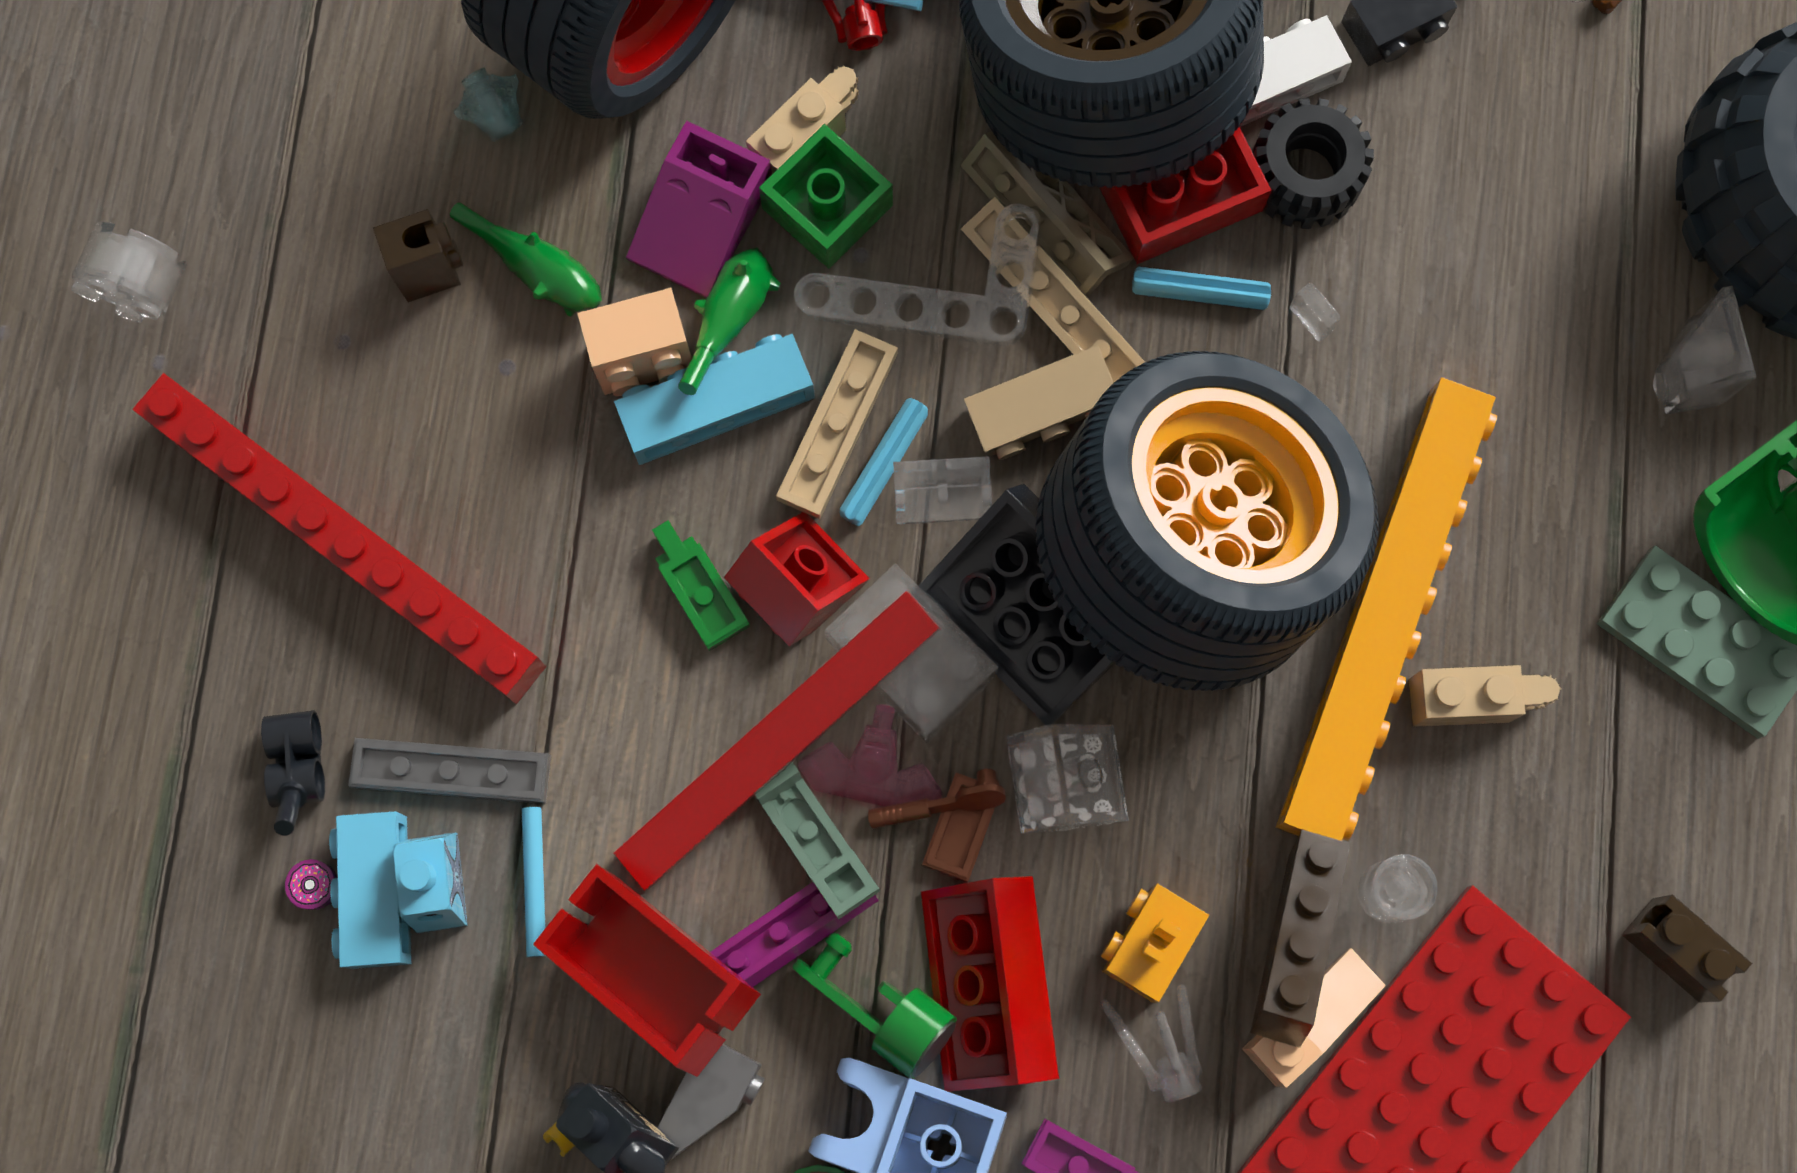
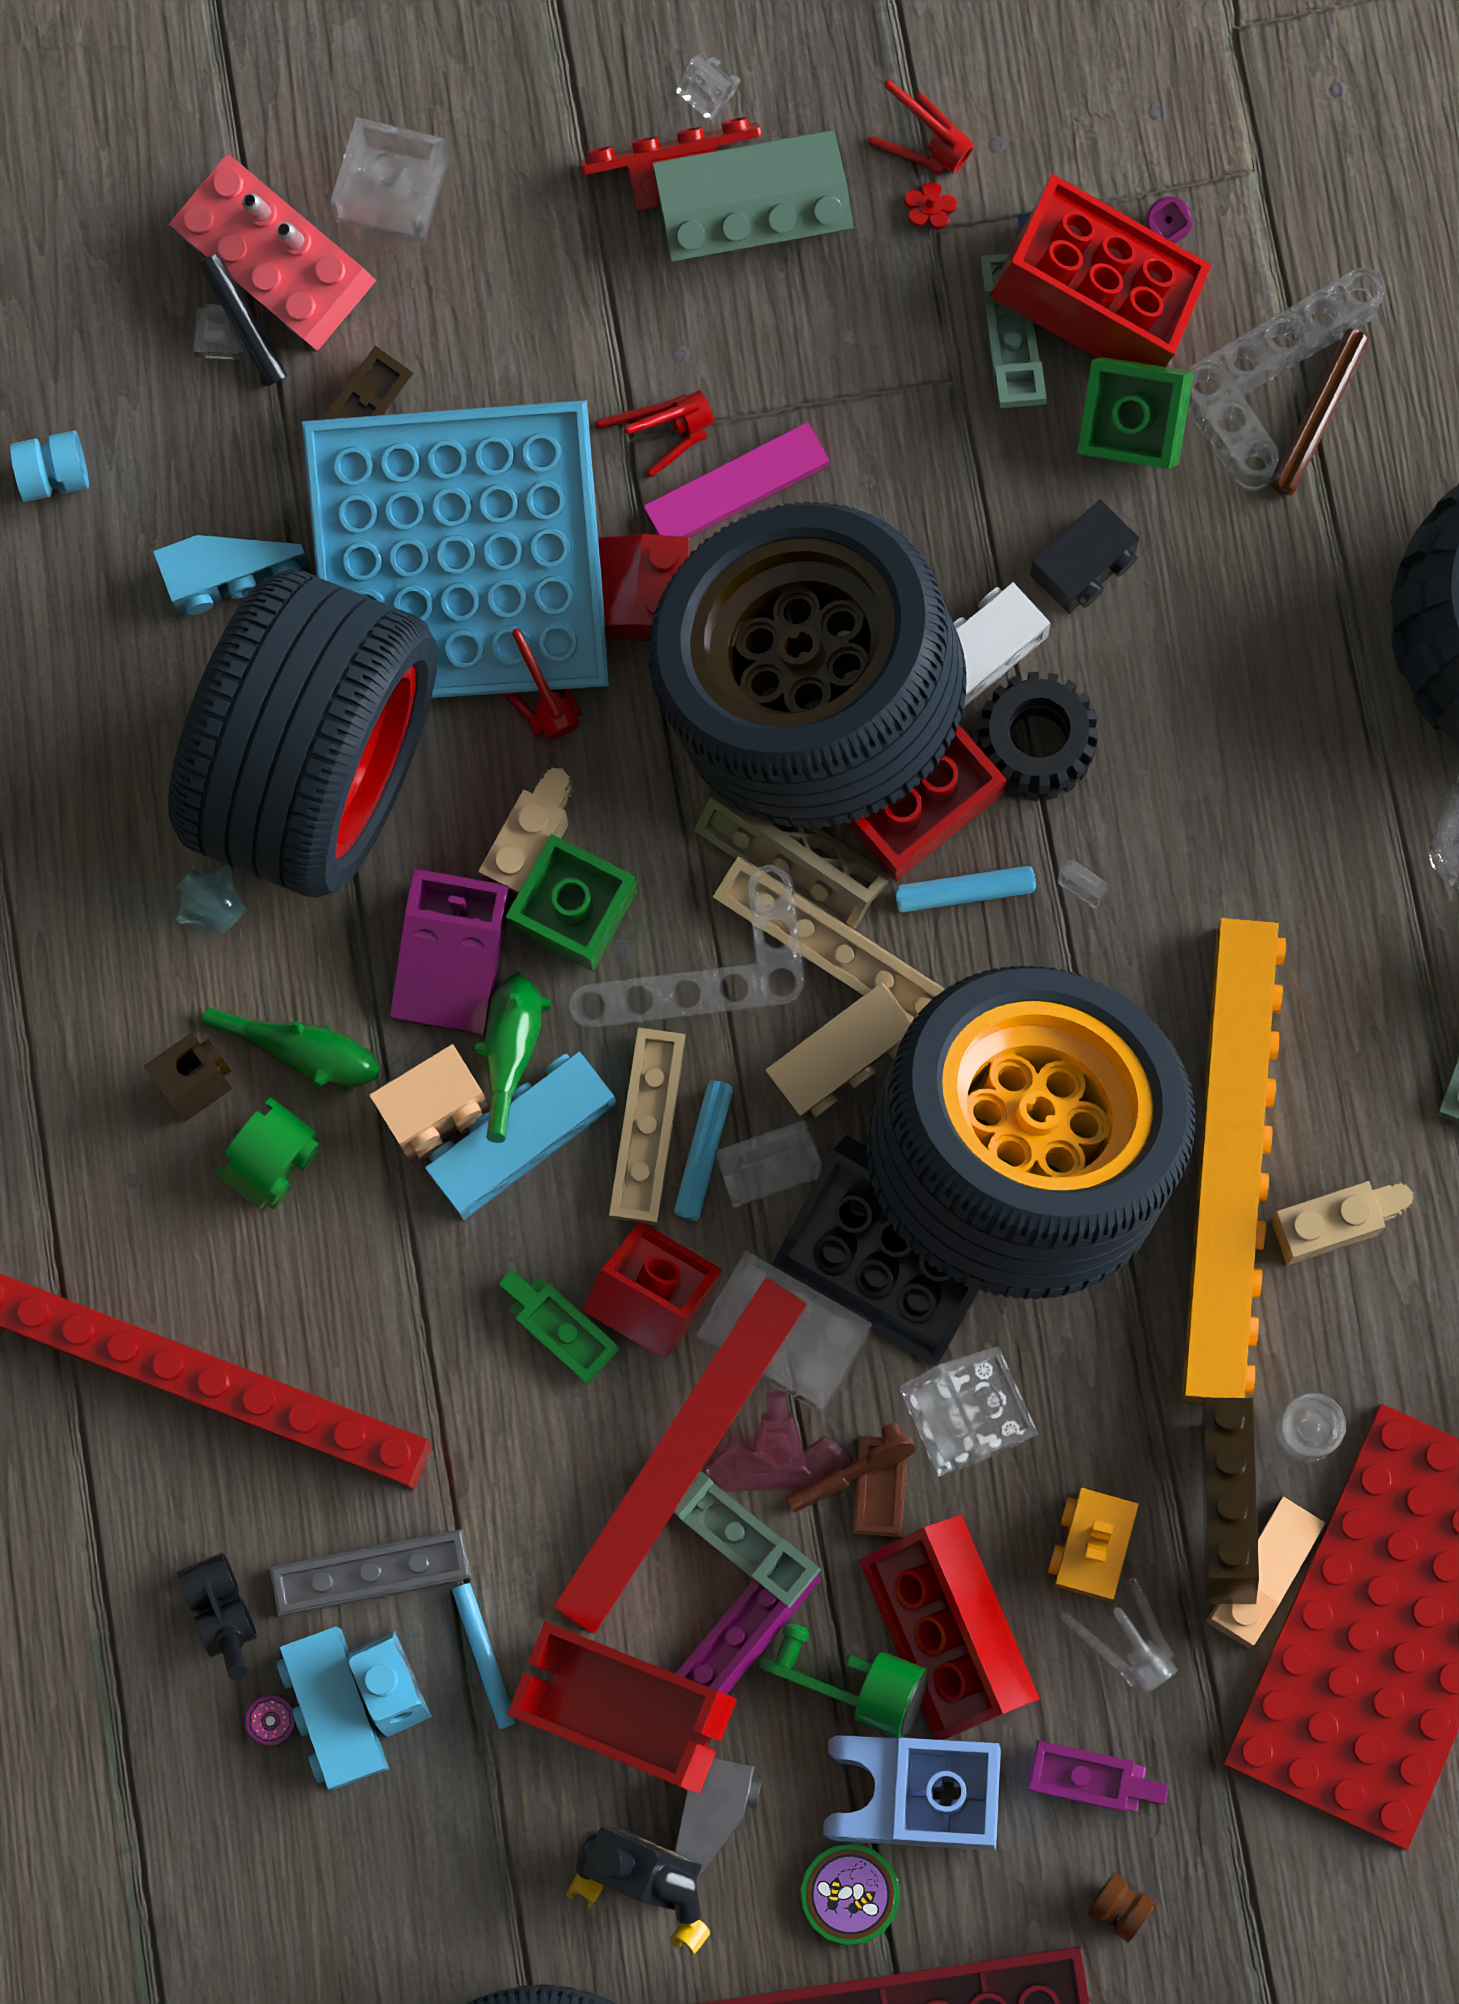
camera: 10 degrees left, 0 degrees up
(469, 348) = (267, 1155): none -> green brick

